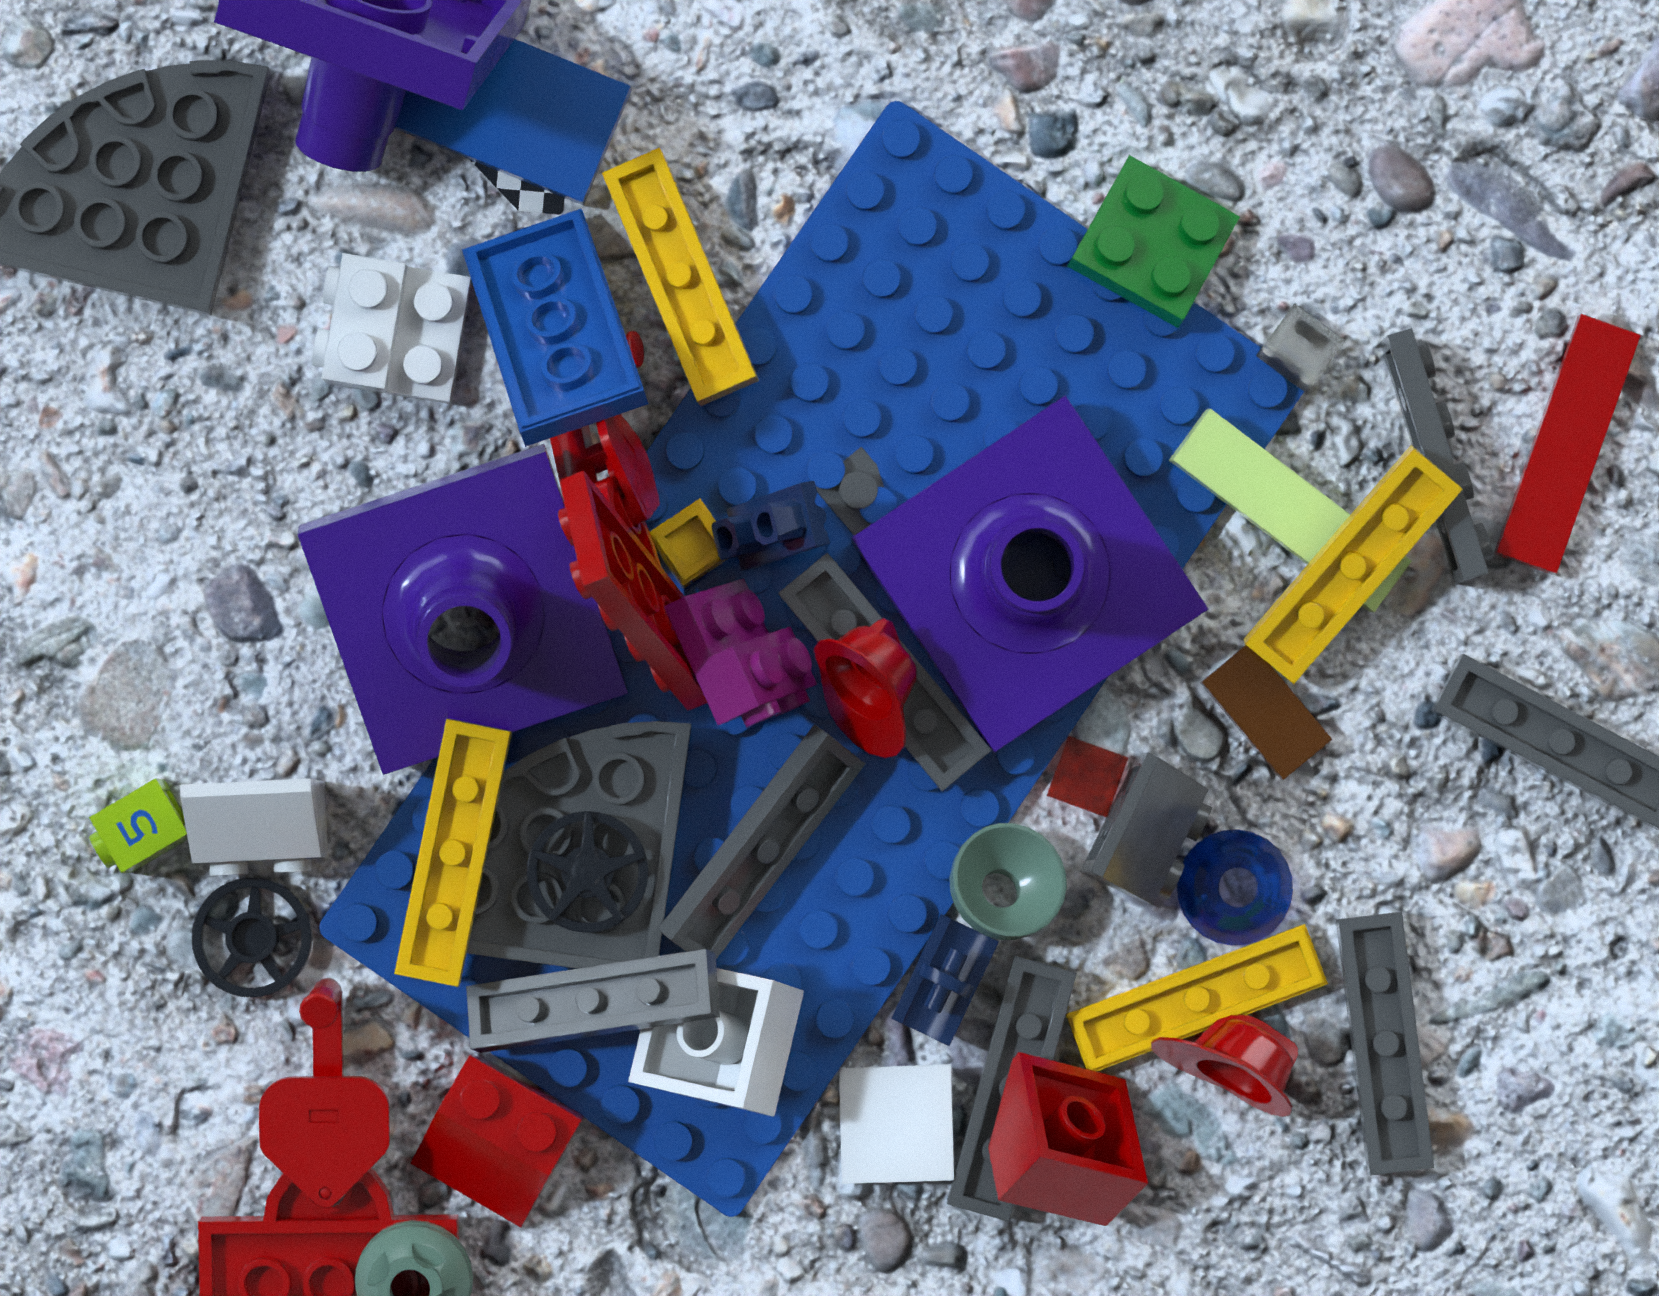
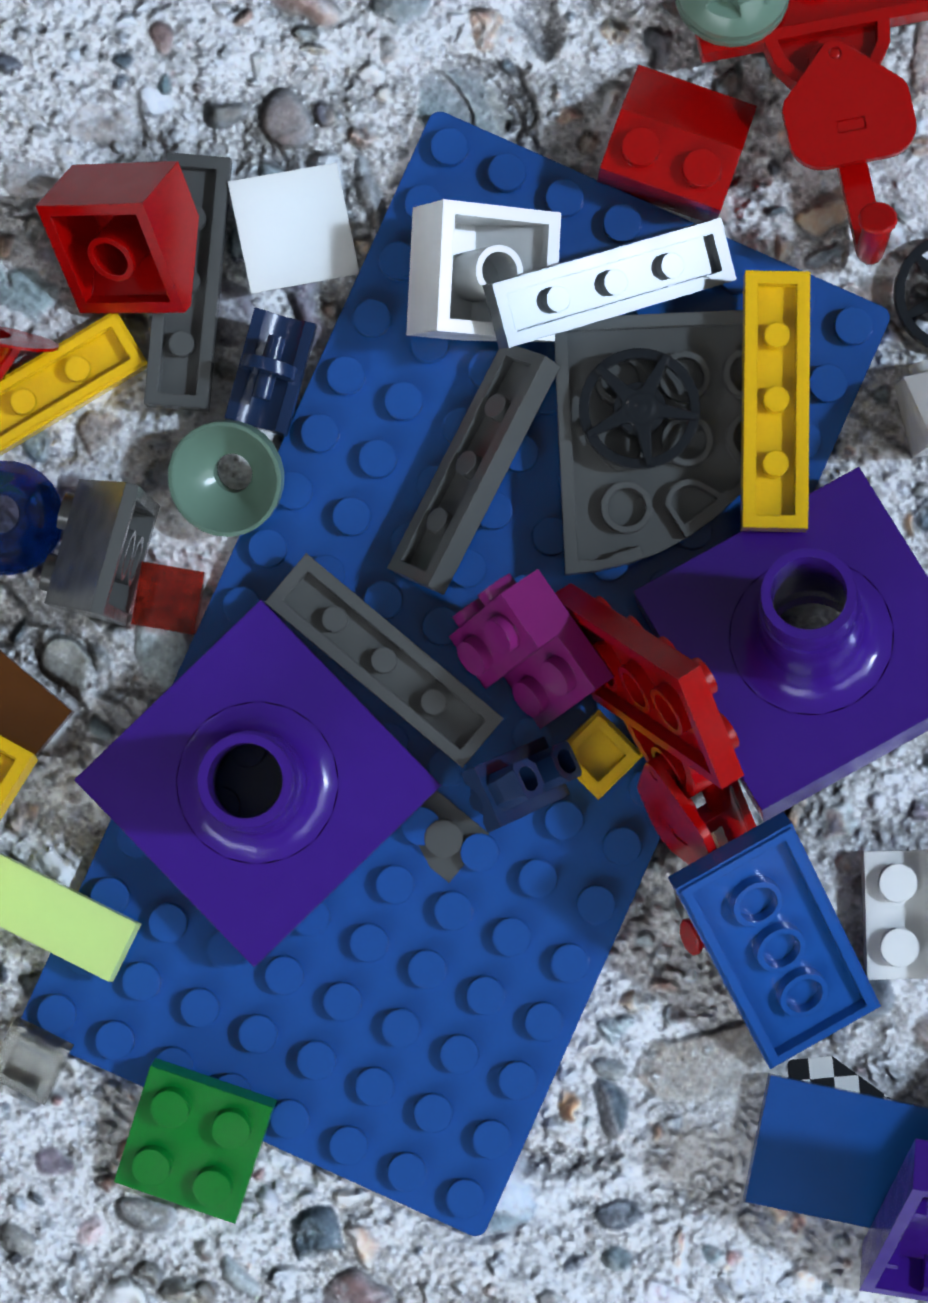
camera: 170 degrees right, 0 degrees up
(680, 276) = (659, 1017): yellow plate -> none
(867, 684) = (396, 640): red piece -> none

